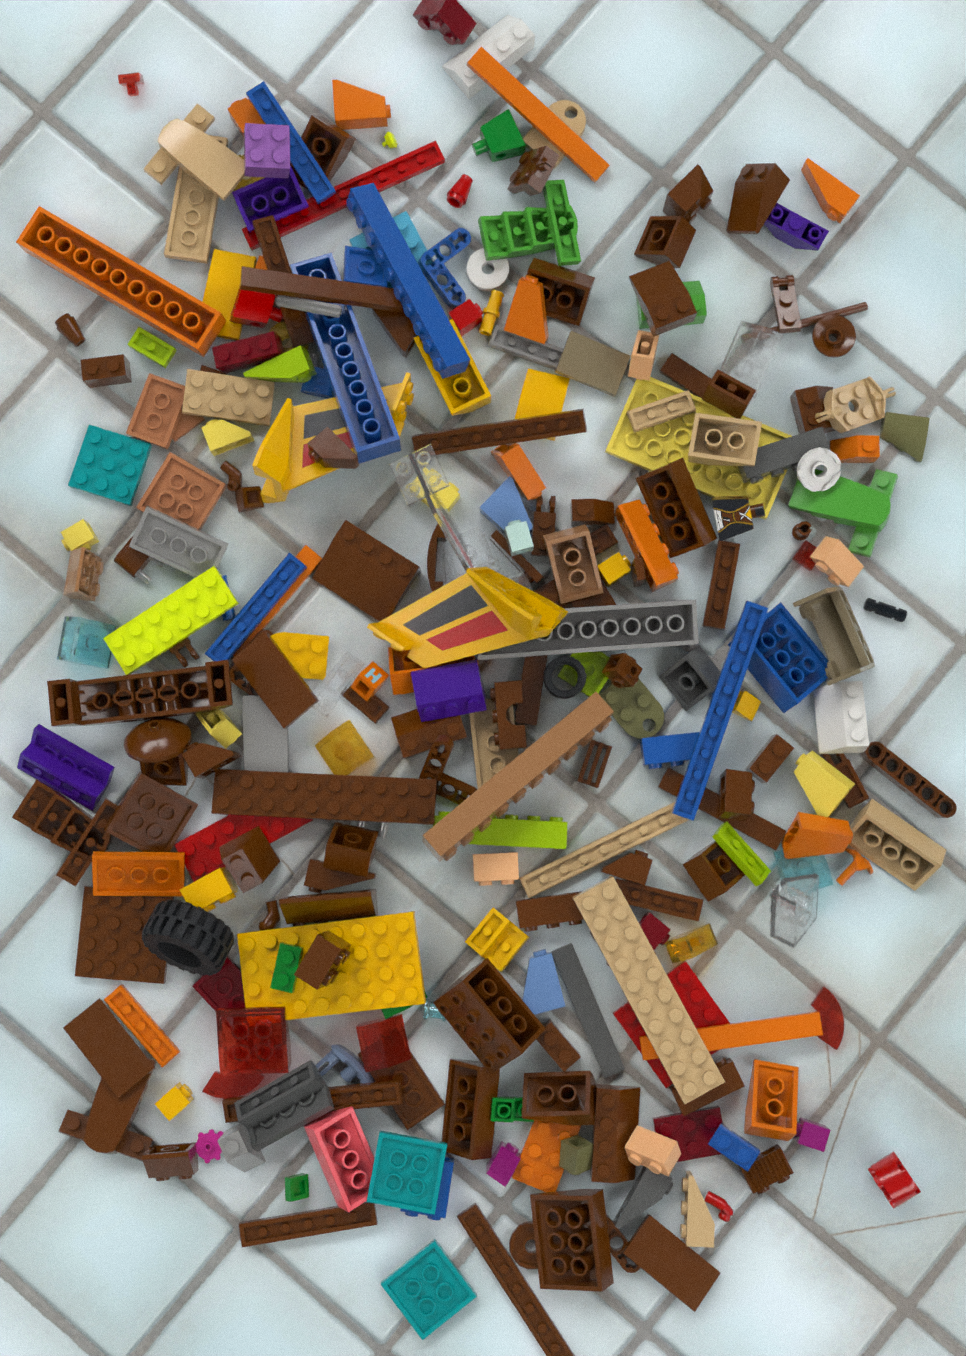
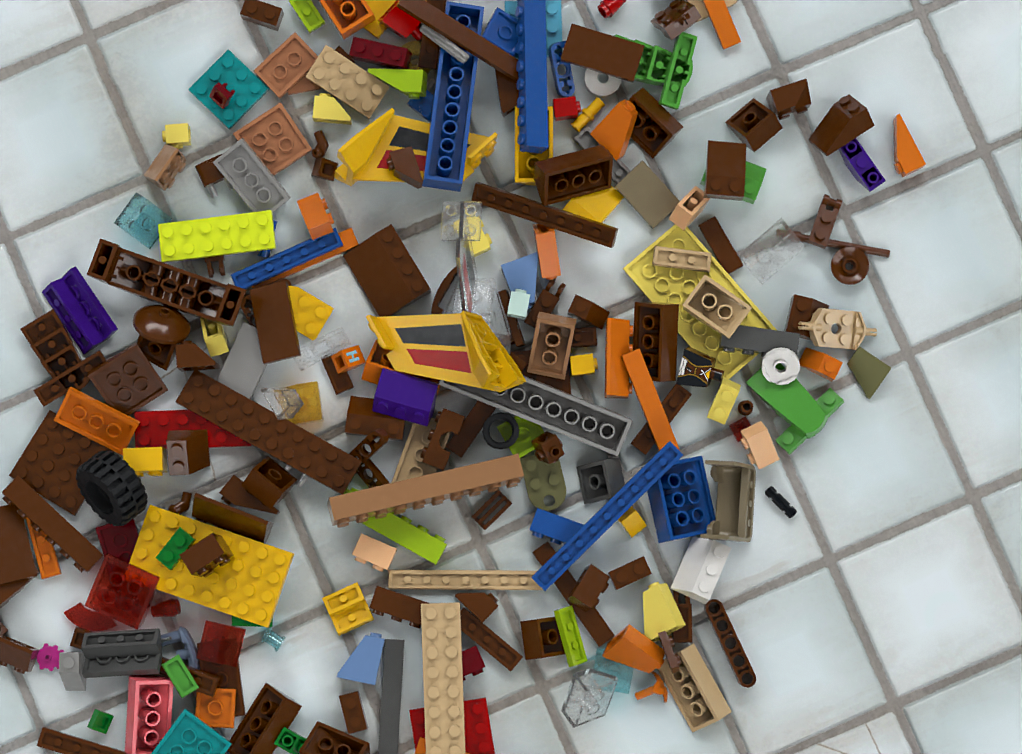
camera: 20 degrees right, 0 degrees up
(104, 473) = (221, 95): none -> dark red tile
(144, 1005) = (49, 521): none -> reddish brown brick
(175, 1100) = (39, 609): yellow brick -> none
(263, 550) = (315, 216): none -> orange brick
(308, 1033) = (167, 608): none -> clear red cone
(323, 757) = (283, 401): none -> clear slope
(357, 1100) = (180, 676): none -> bright green tile
(414, 1114) = (217, 710): none -> orange tile
(476, 240) = (602, 53): none -> reddish brown tile
(489, 1016) = (312, 662): reddish brown brick -> none
(508, 377) = (573, 174): none -> reddish brown slope
(638, 572) = (599, 377): reddish brown tile -> none
(691, 943) = (496, 685): clear yellow slope -> none
(700, 570) = (648, 398): none -> orange tile
(728, 394) = (740, 272): reddish brown brick -> none
(777, 534) = (723, 401): none -> light yellow brick
(848, 813) = (667, 644): none -> reddish brown plate

